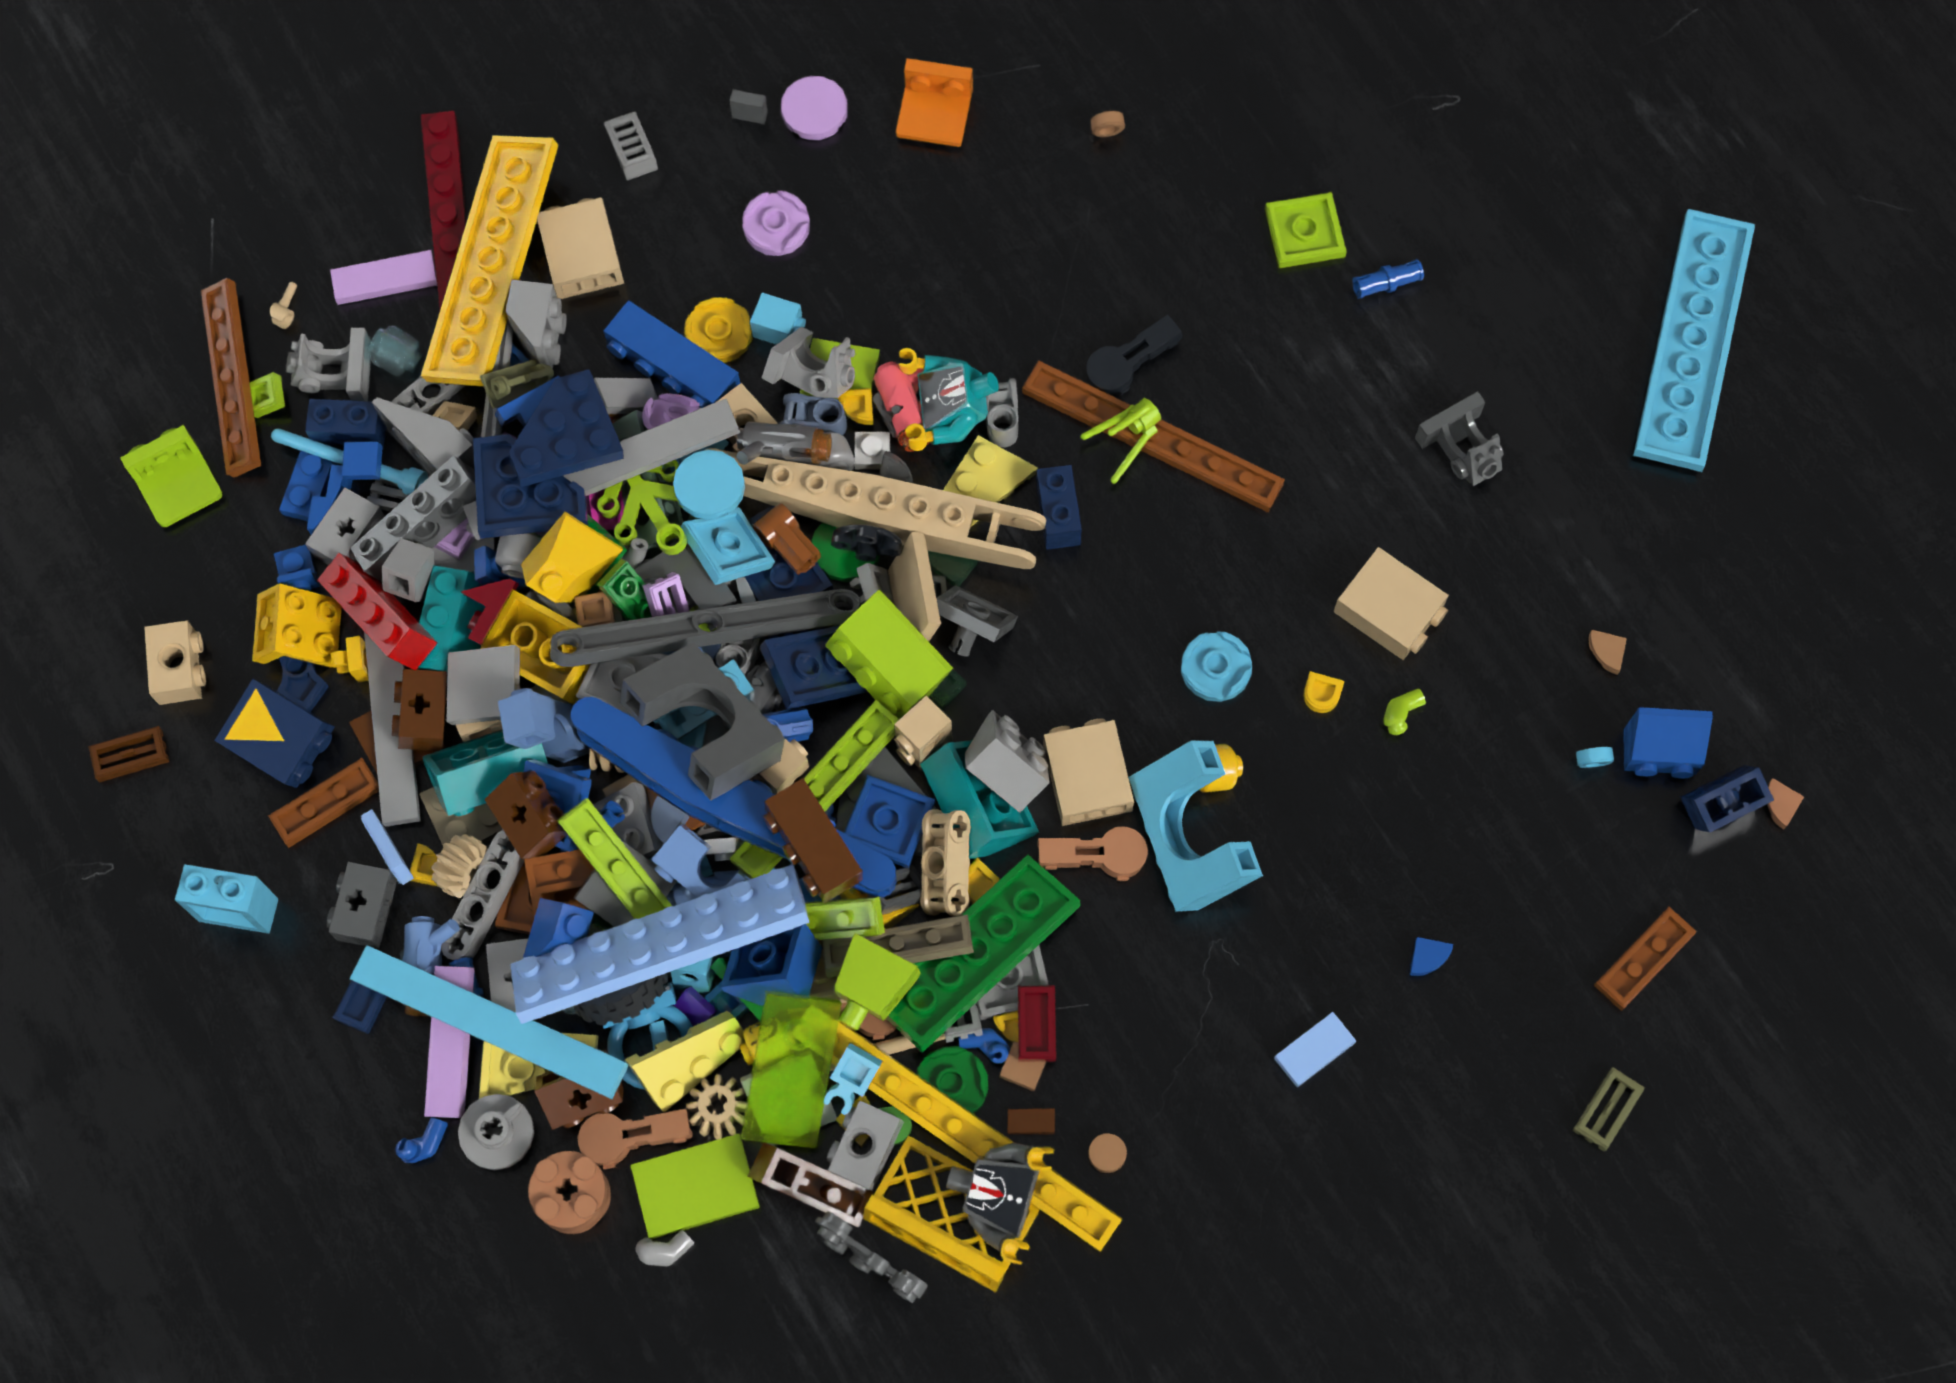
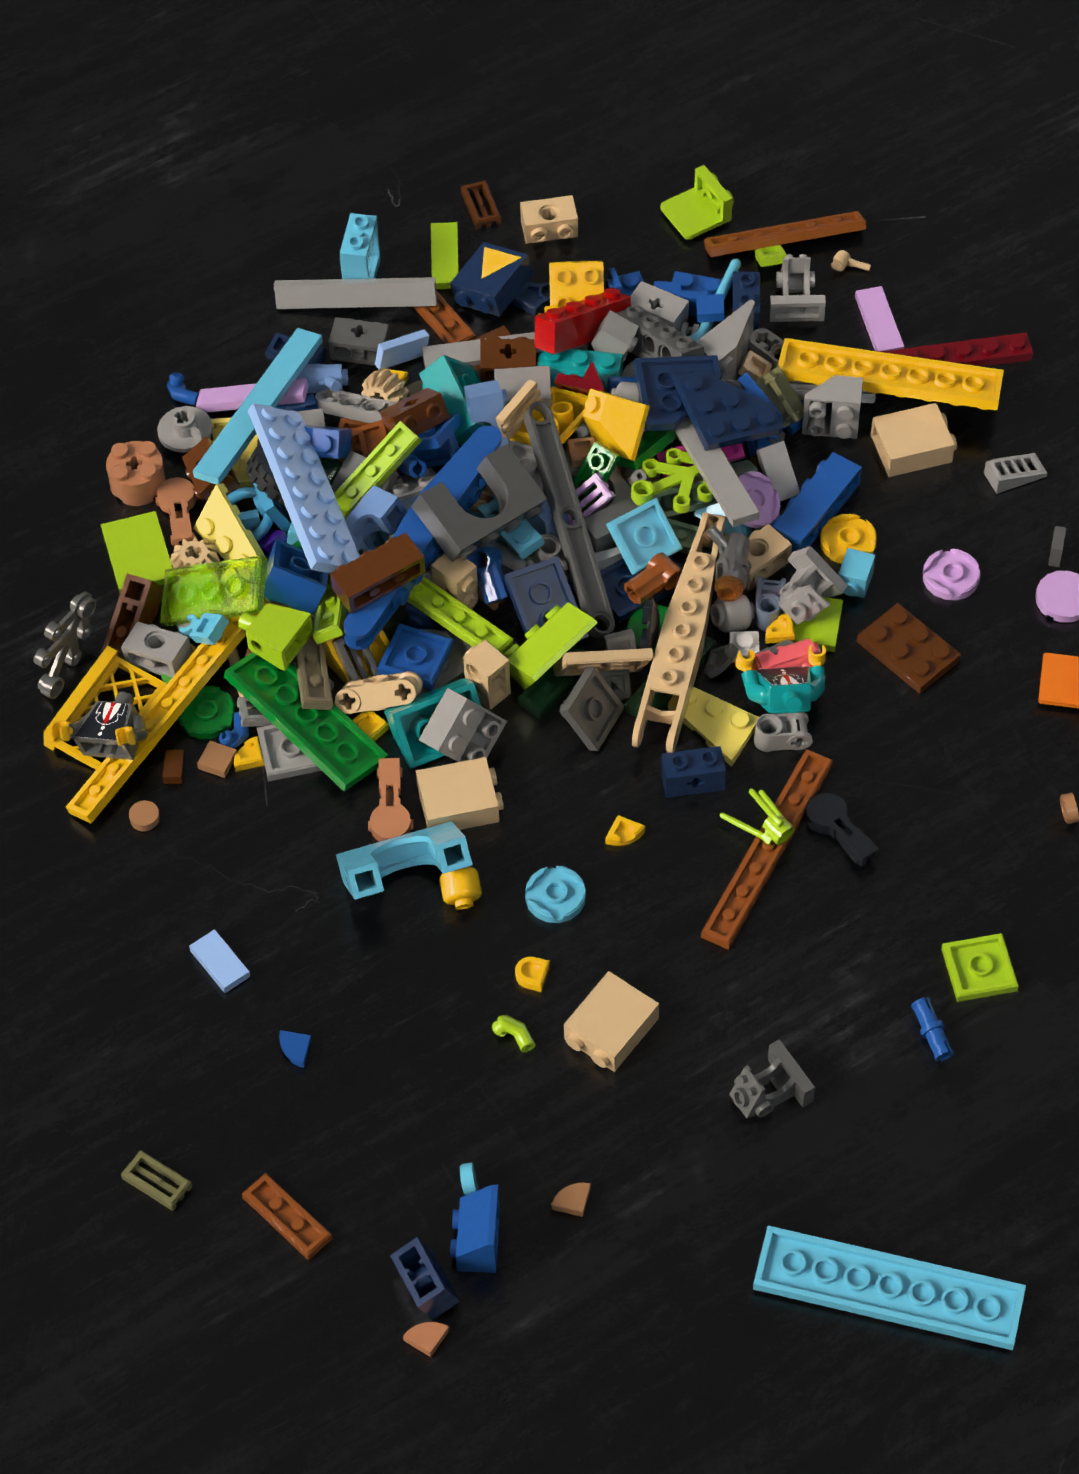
camera: 90 degrees right, 15 degrees down
(215, 799) = (444, 253): none -> lime tile
(282, 910) = (355, 293): none -> light grey tile
(394, 350) = (812, 326): clear light blue head -> none
(539, 678) = (512, 415): none -> tan tile
(662, 1253) = (89, 530): light grey arm -> none
(709, 484) = (688, 510): medium azure tile -> none
(880, 274) = (908, 648): none -> reddish brown plate
(1036, 1024) = (248, 761): dark red tile -> none
(1130, 590) = (624, 832): none -> yellow tile

